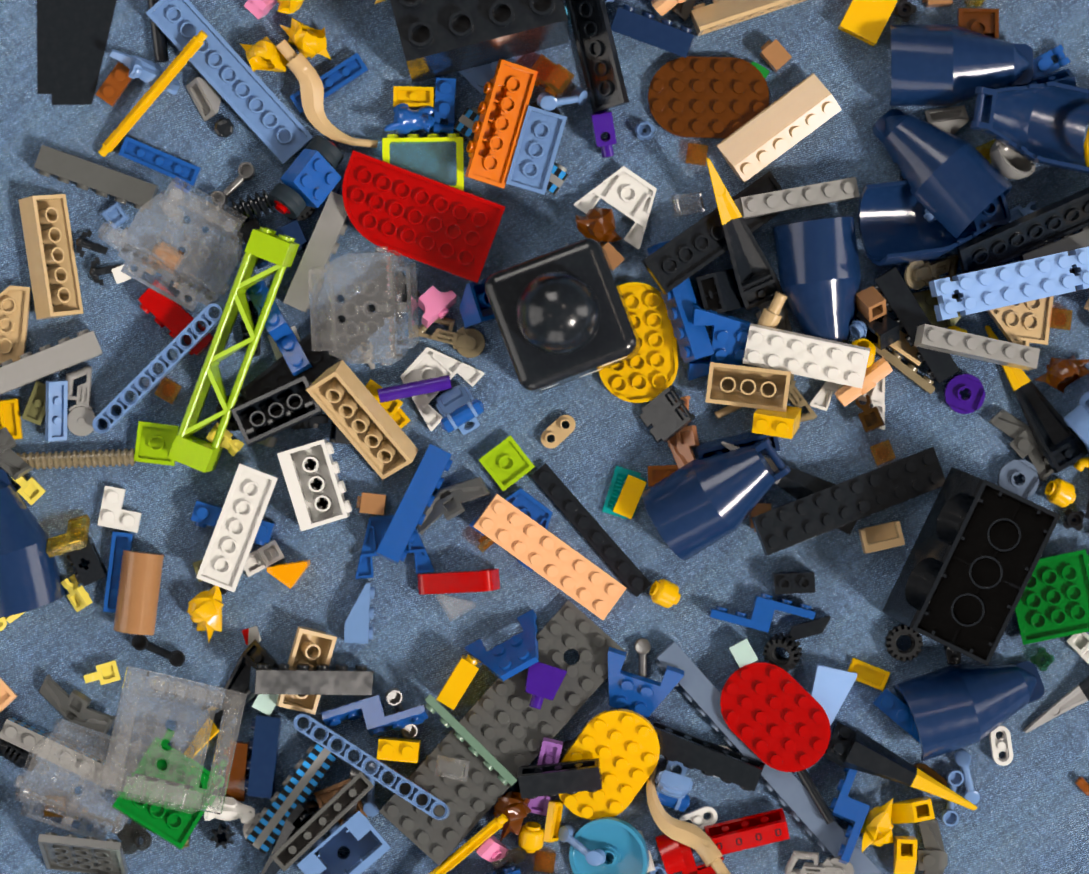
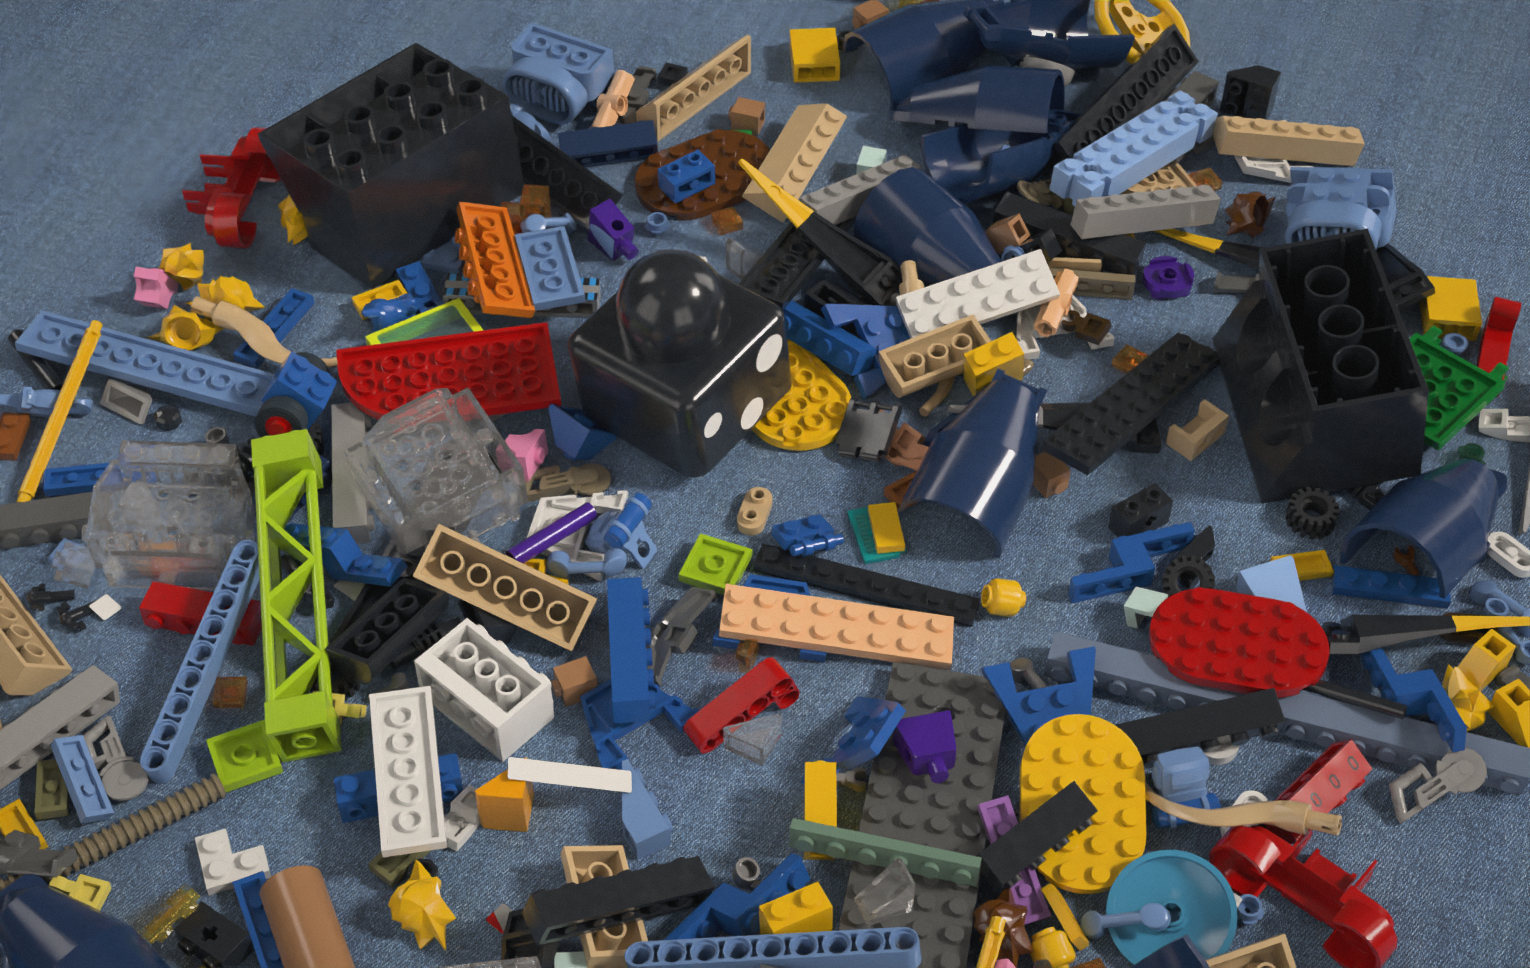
camera: 35 degrees left, 40 degrees down
(327, 583) = (569, 774): none -> white sticker
(410, 411) = (614, 562): none -> medium blue bar
(575, 470) = (806, 535): none -> blue plate
(685, 106) = (686, 176): none -> blue brick
(830, 164) = (870, 158): none -> light aqua brick

